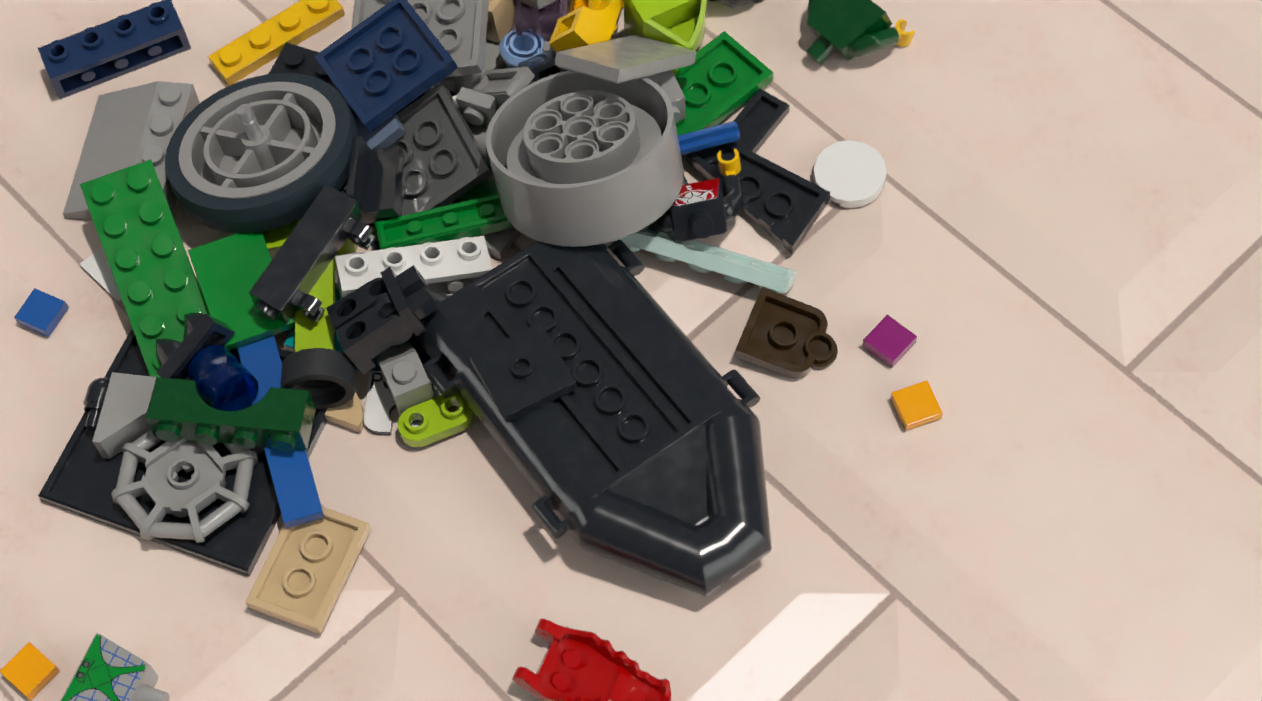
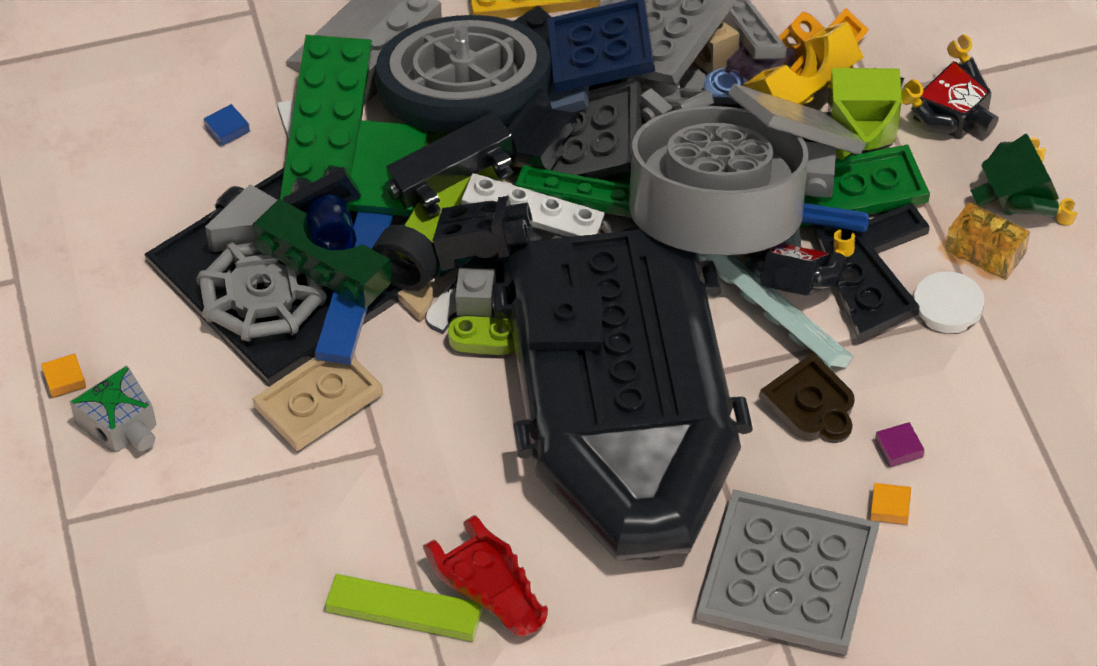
camera: 25 degrees right, 10 degrees down
(852, 89) = (987, 241): none -> clear yellow brick
(867, 524) = (788, 572): none -> light grey plate

